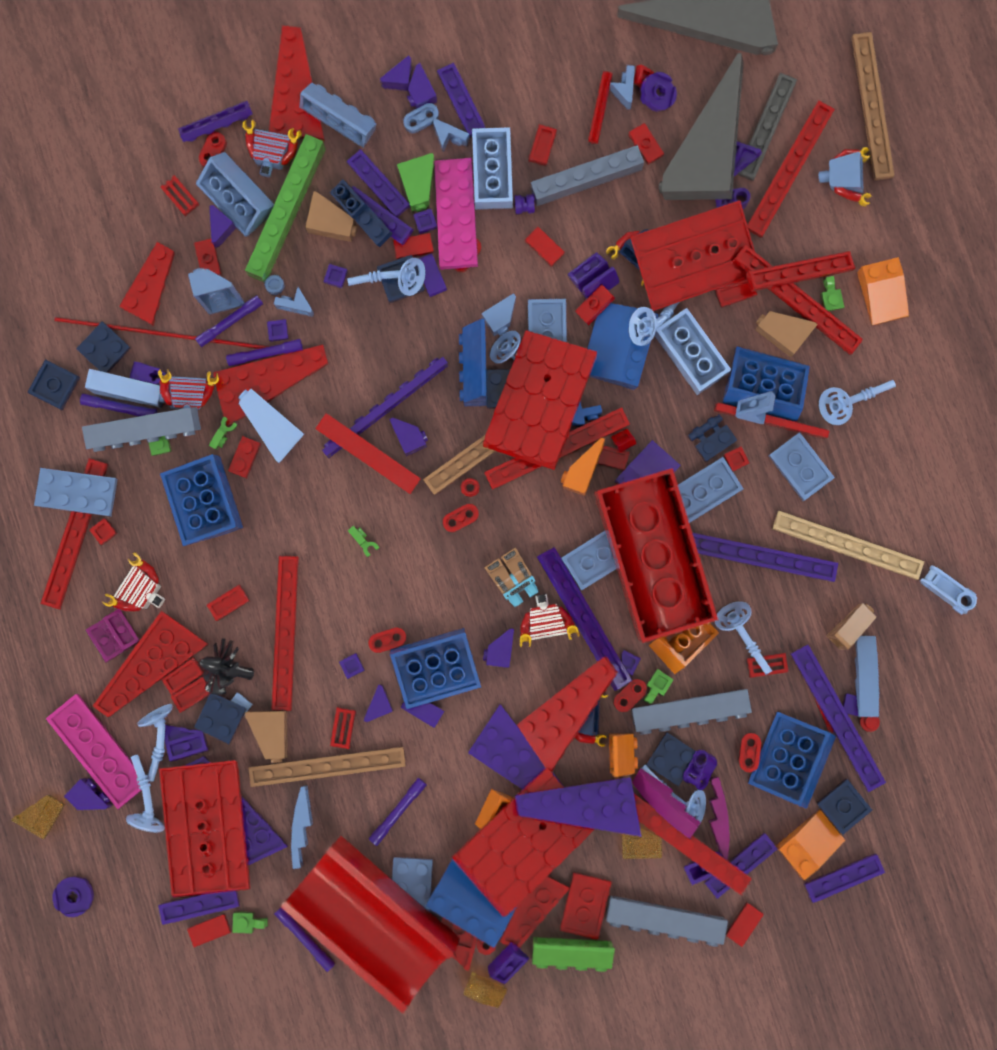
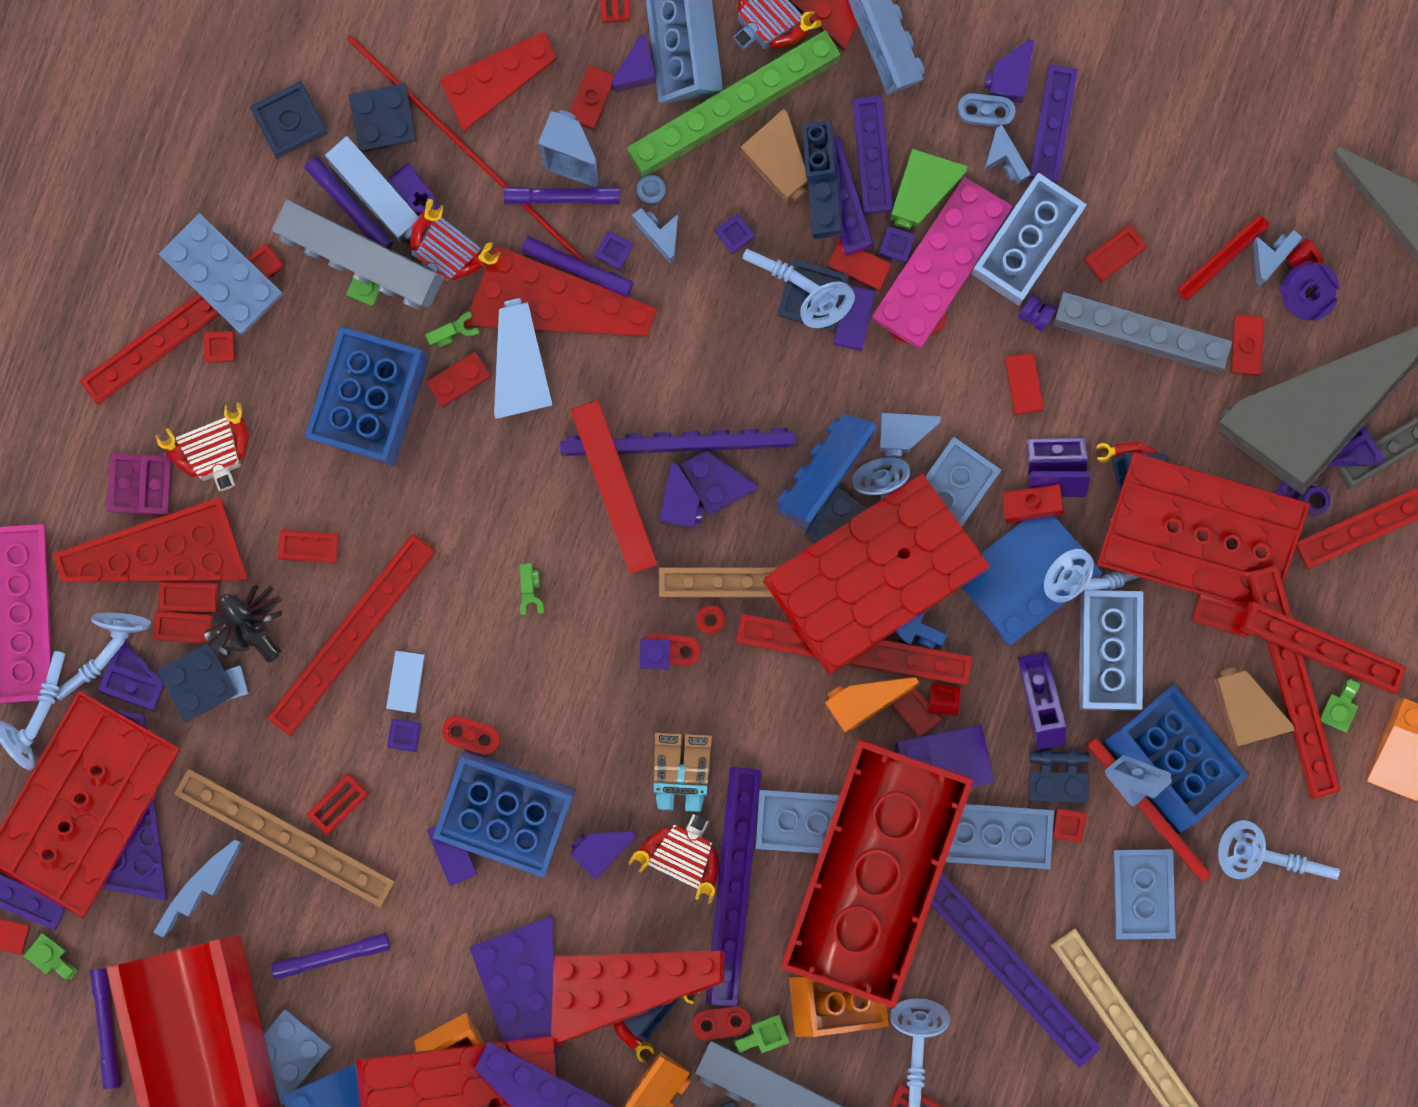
camera: 30 degrees right, 0 degrees up
(270, 733) = (244, 745): medium nougat slope -> none
(332, 637) = (405, 681): none -> light blue tile
(379, 705) = (403, 809): dark purple slope -> none
(399, 76) = (996, 38): dark purple slope -> none
(420, 413) = (716, 482): none -> dark purple wing
(454, 526) = (654, 653): none -> dark purple plate
(630, 662) = (751, 981): dark purple tile -> none
(675, 404) = (1042, 701): none -> dark purple slope

